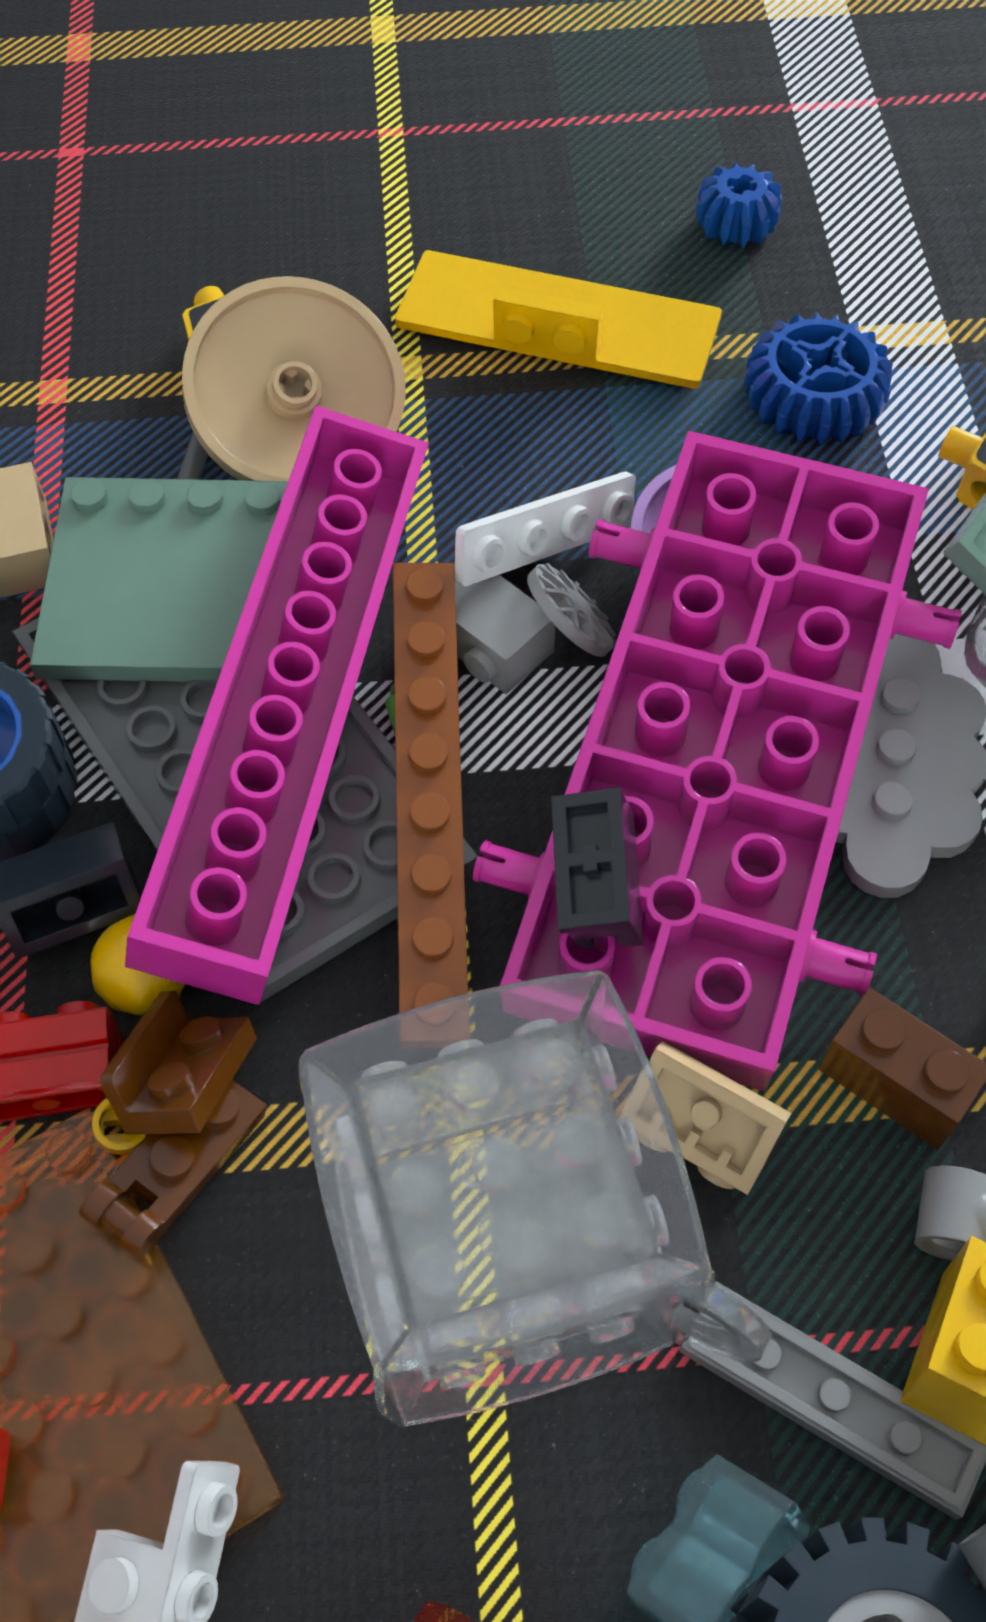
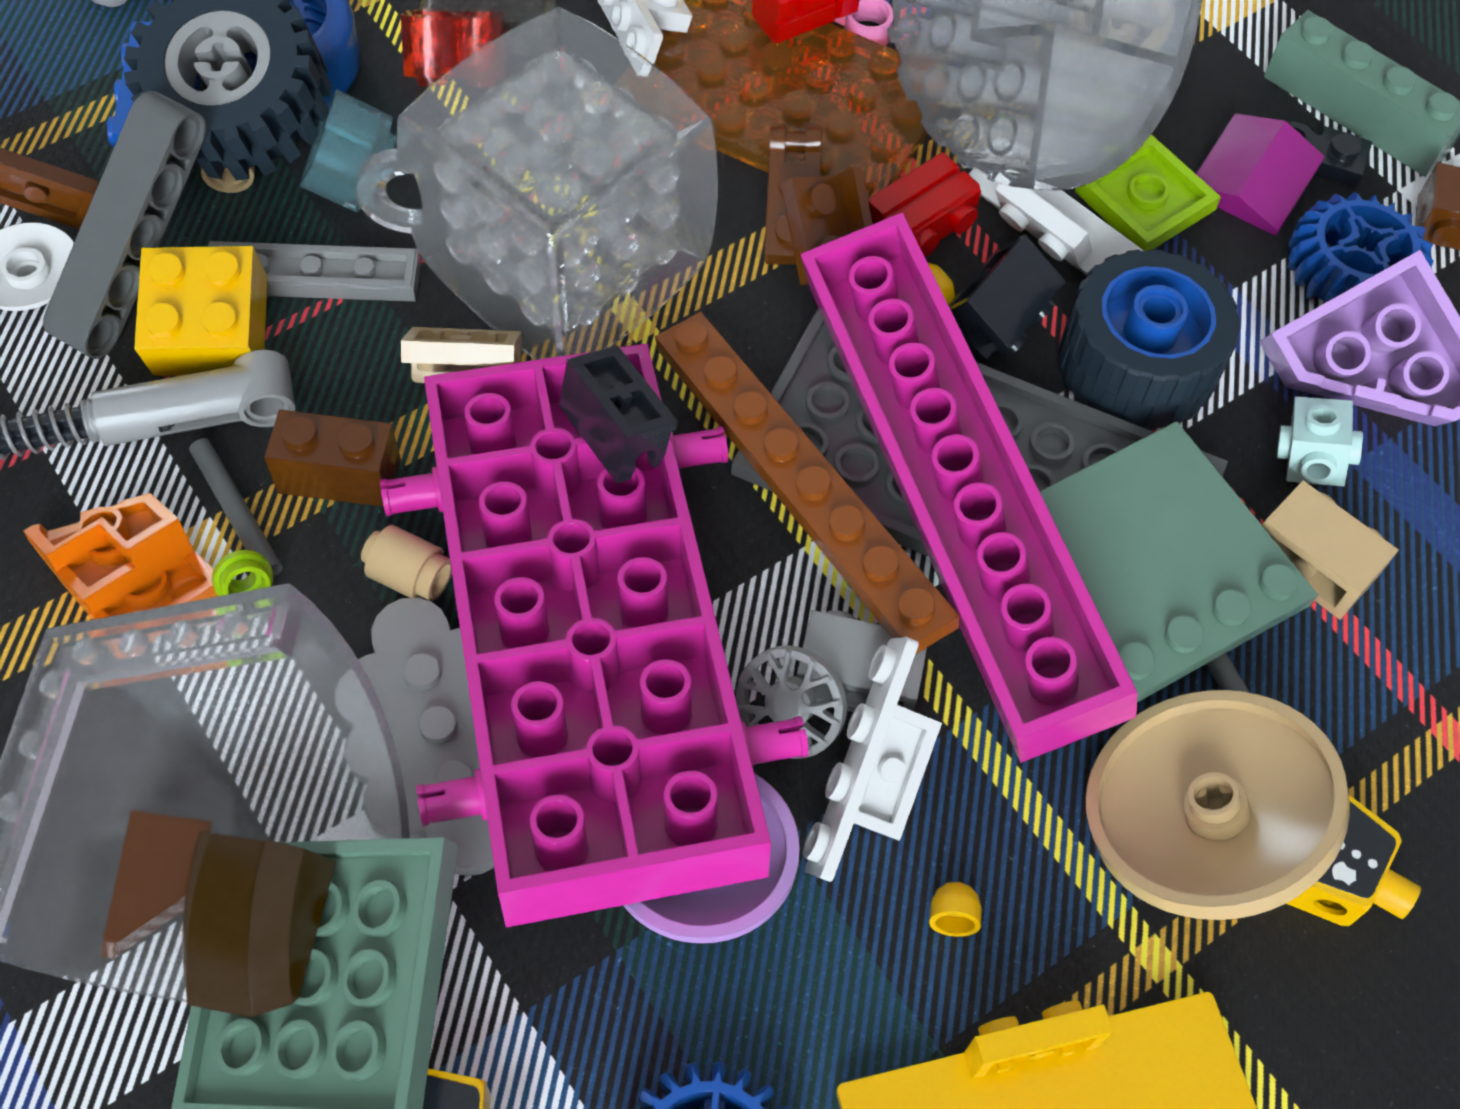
camera: 145 degrees right, 0 degrees up
(536, 438) = (955, 910): none -> yellow hinge
(866, 914) = (406, 563): none -> tan brick

